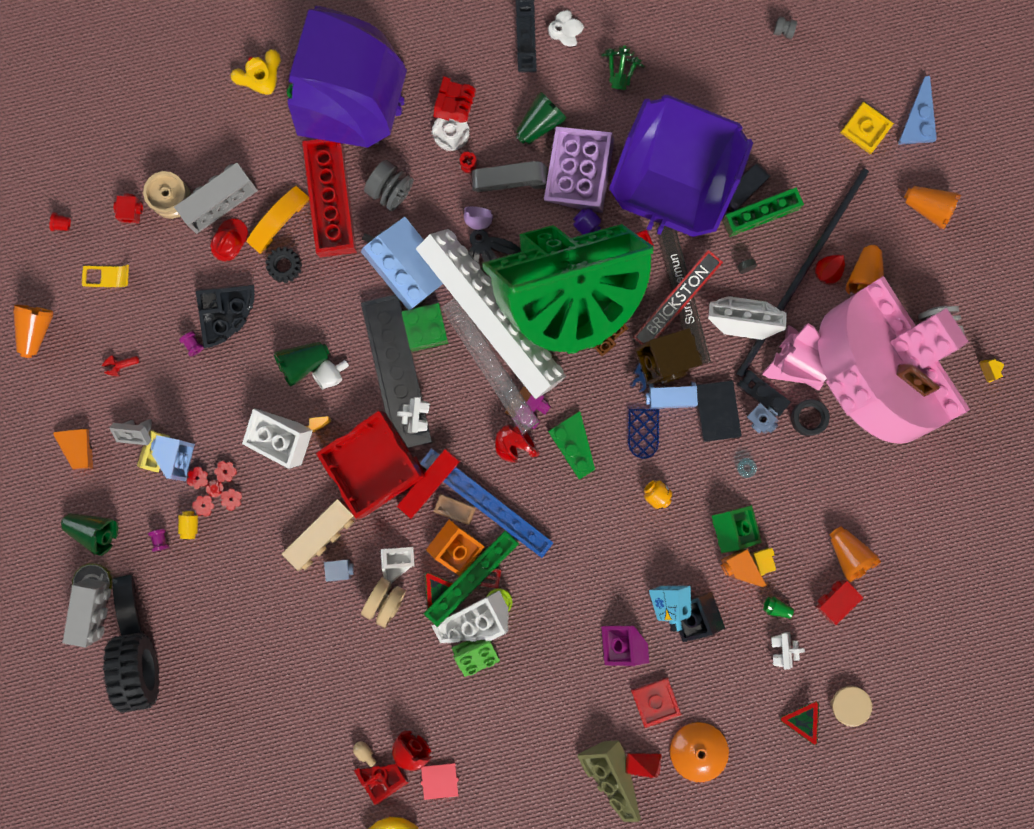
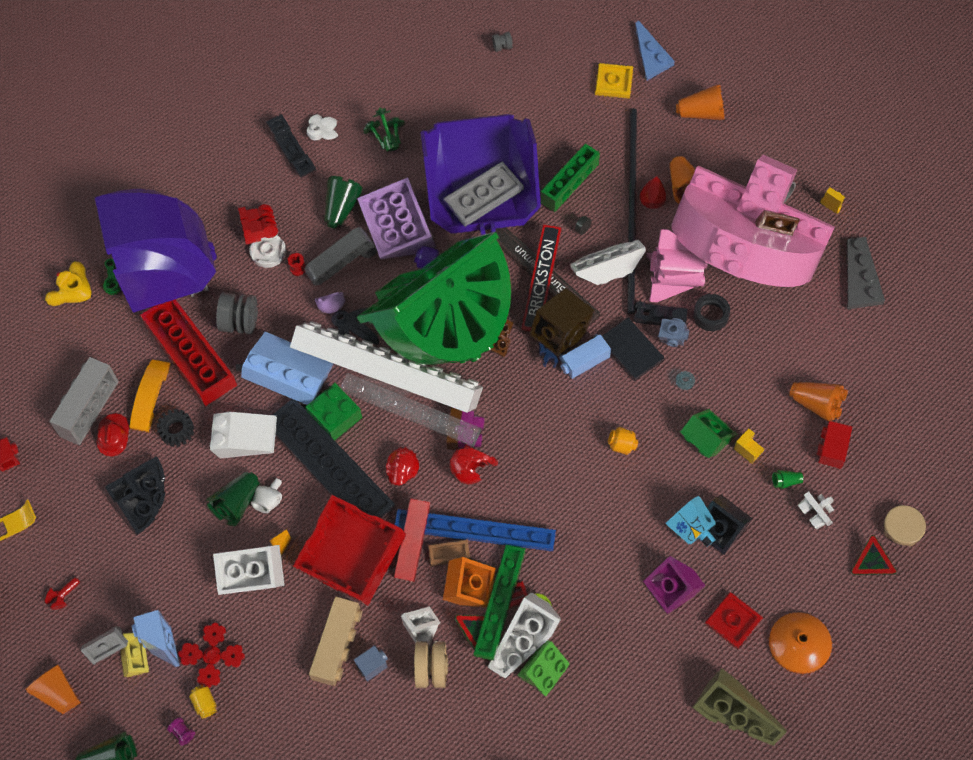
camera: 30 degrees left, 20 degrees down
(164, 192) = (32, 422): tan wheel -> none
(191, 343) = (122, 537): magenta bush -> none
(336, 306) = (242, 434): none -> white slope
(411, 415) = (363, 486): white hips -> none
(455, 411) = (401, 466): none -> red hair
(574, 445) = (523, 441): green wing -> none
(630, 411) = (586, 388): clear blue window -> none
(643, 764) = (757, 678): red slope -> none
(673, 186) = (483, 194): none -> light grey tile
(742, 567) = (736, 459): orange slope -> none
(748, 186) = (546, 164): black beam -> none
(968, 457) = (862, 278): none -> dark grey wing

